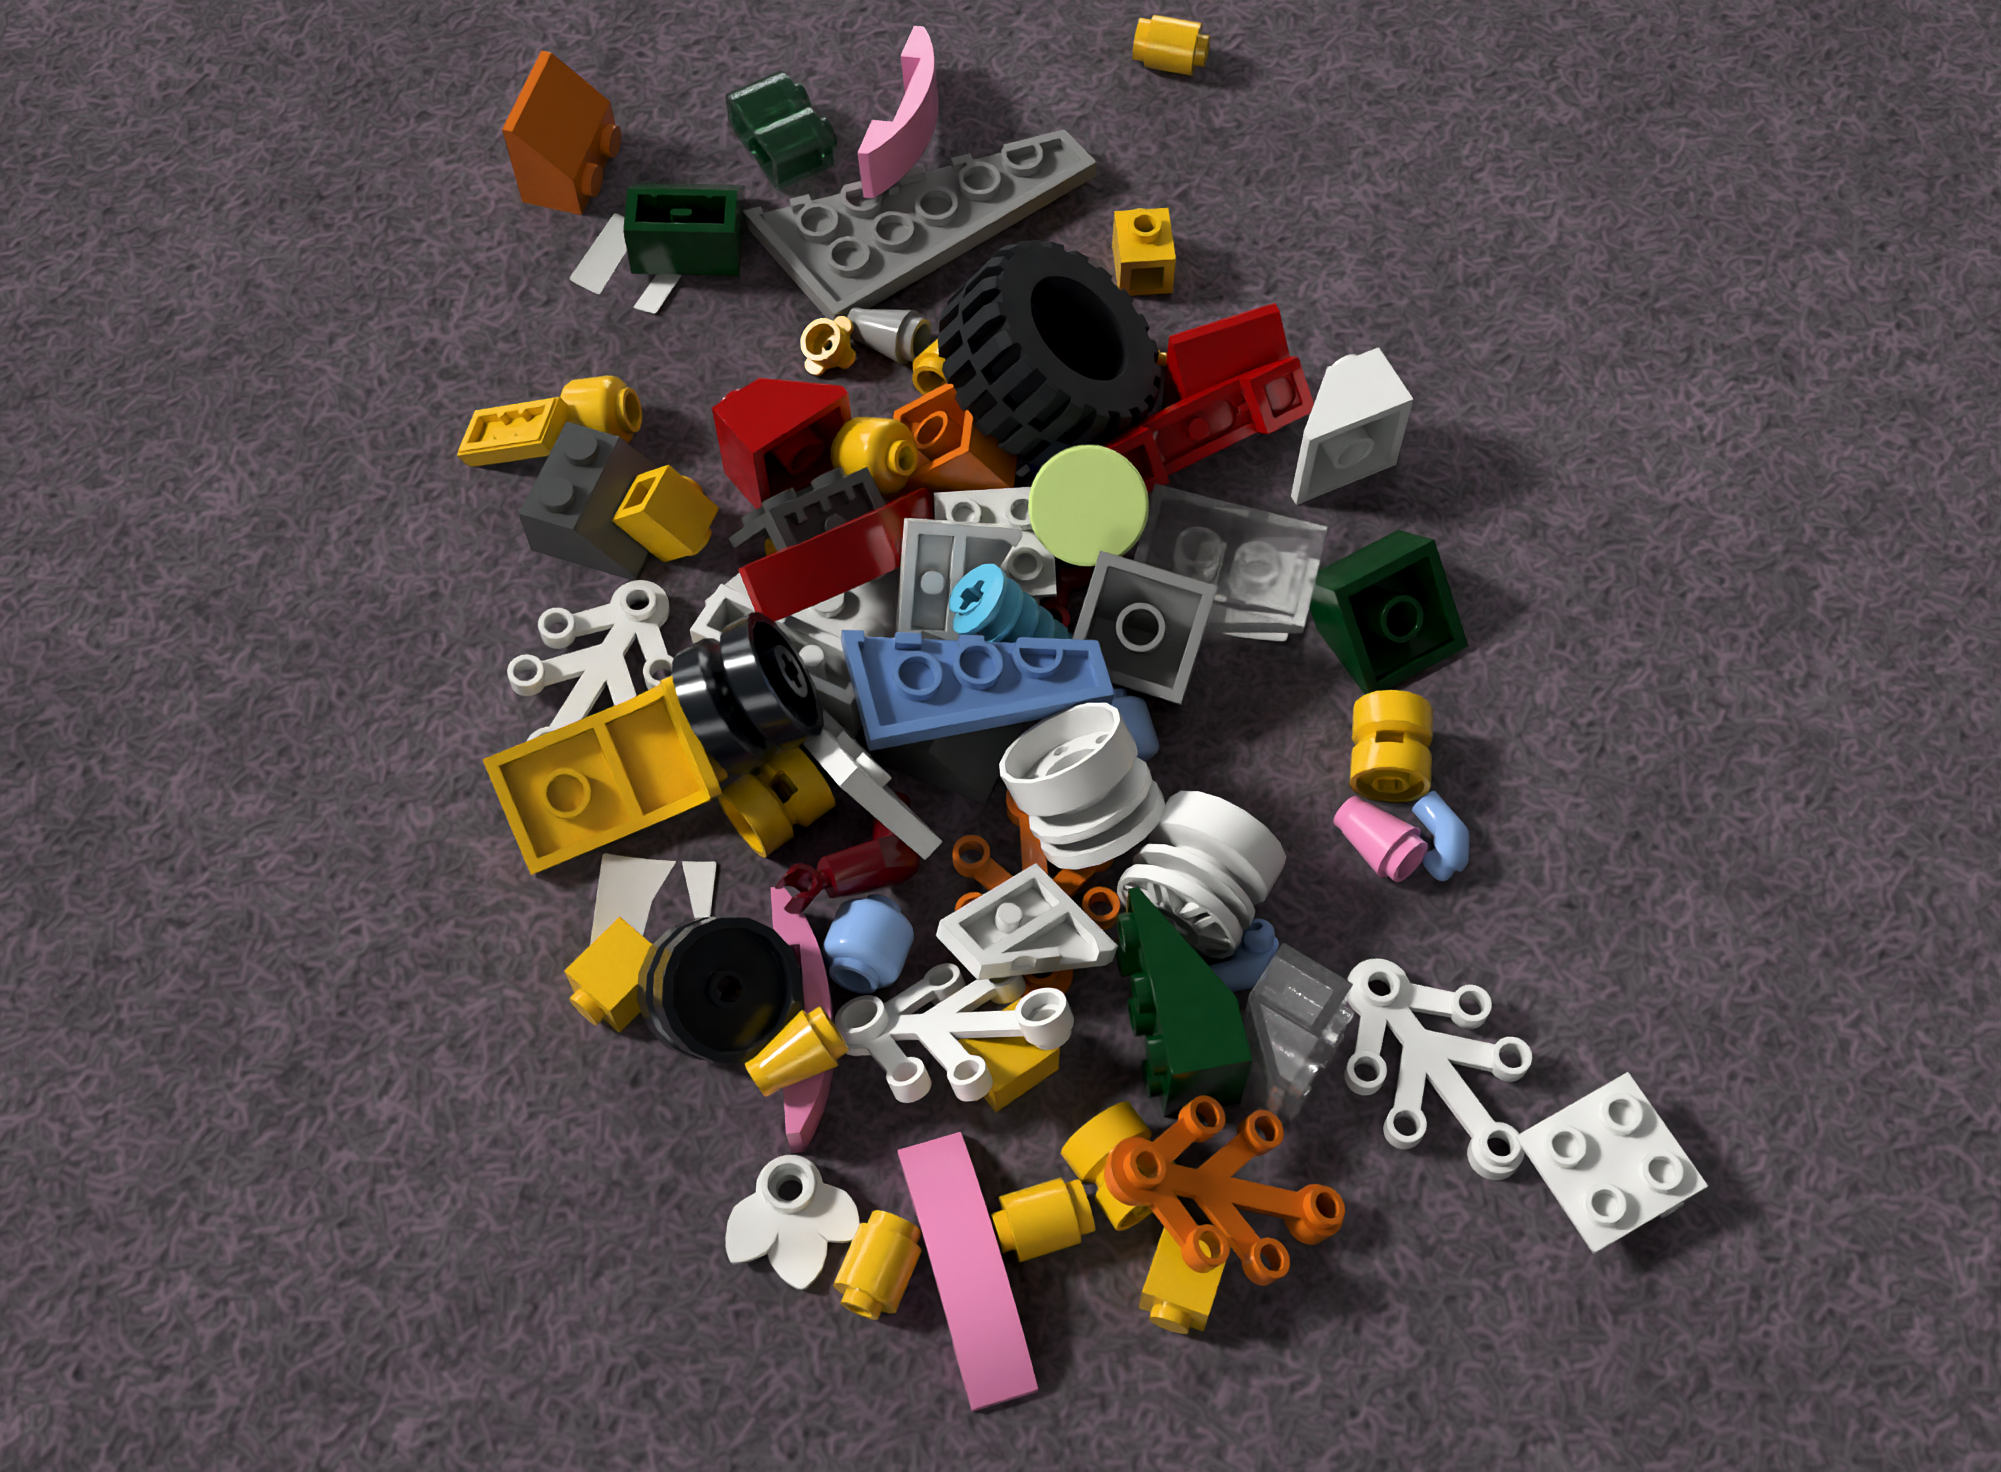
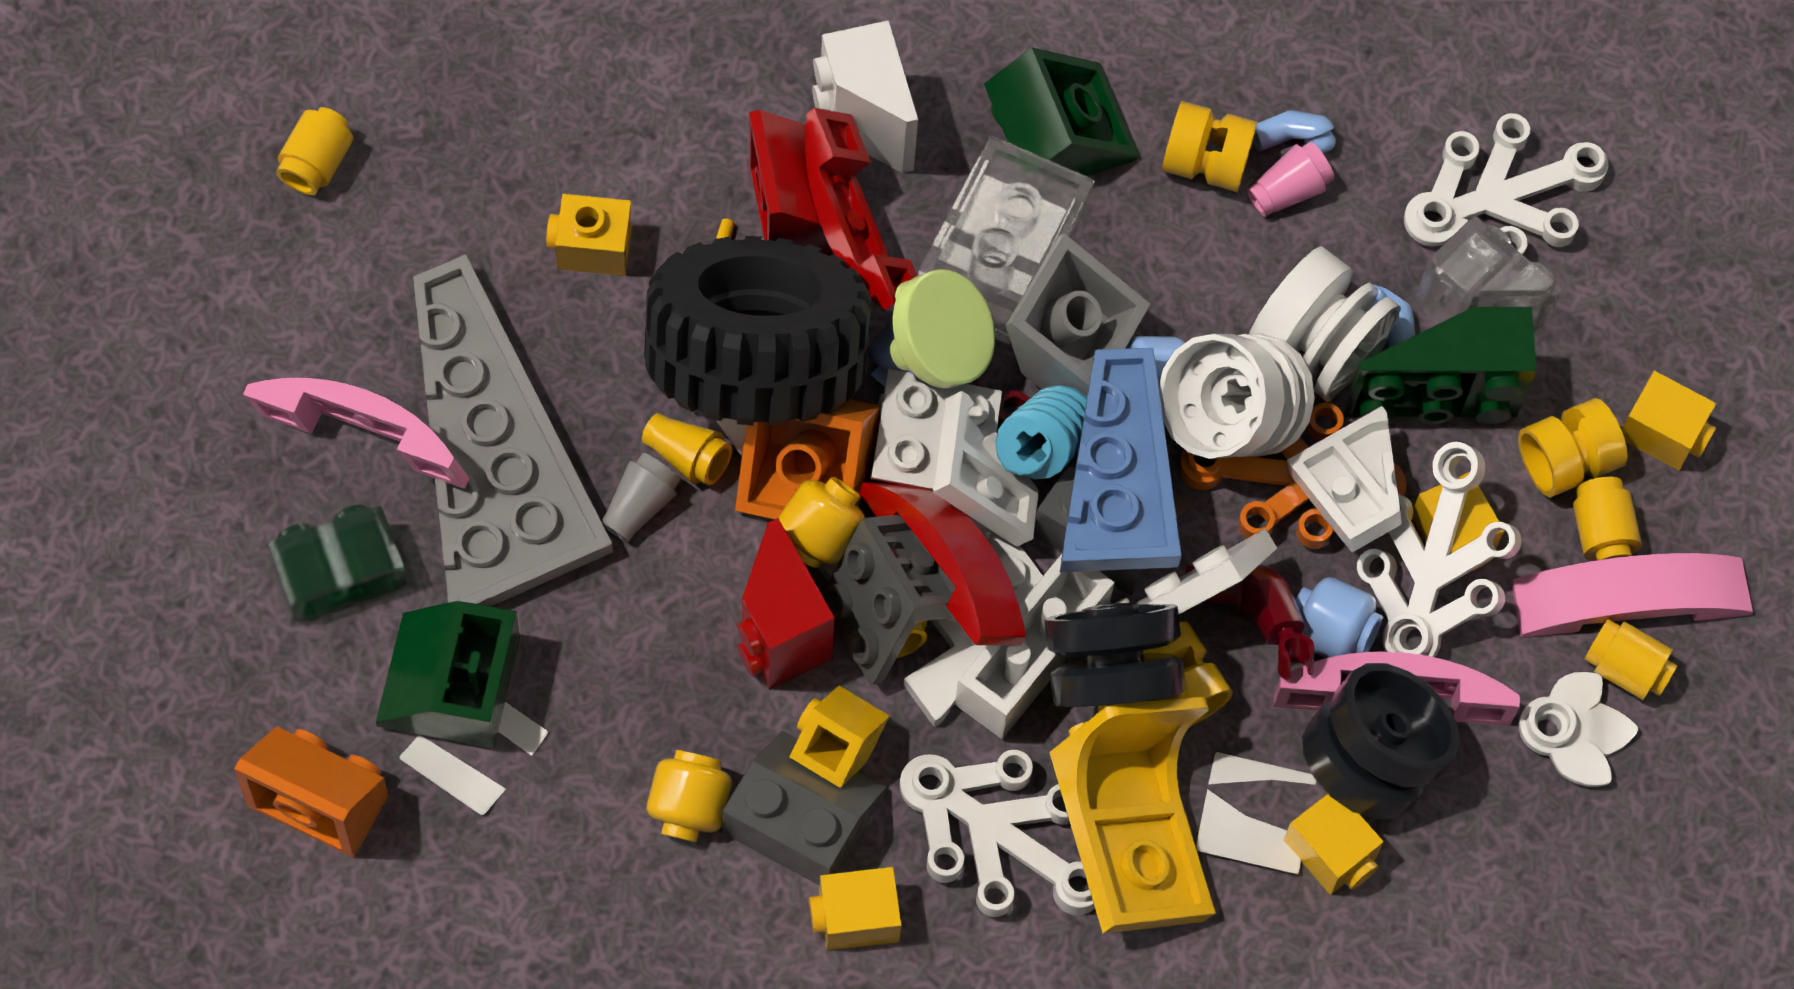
camera: 85 degrees left, 5 degrees up
(500, 564) = (857, 909): none -> yellow brick
(513, 432) = (699, 879): yellow plate -> none
(798, 1052) = (1458, 676): yellow cone -> none
(817, 338) = (653, 571): yellow plate -> none
(1308, 1214) = (1609, 416): orange plant -> none
(1611, 1162) = (1615, 80): white hinge -> none

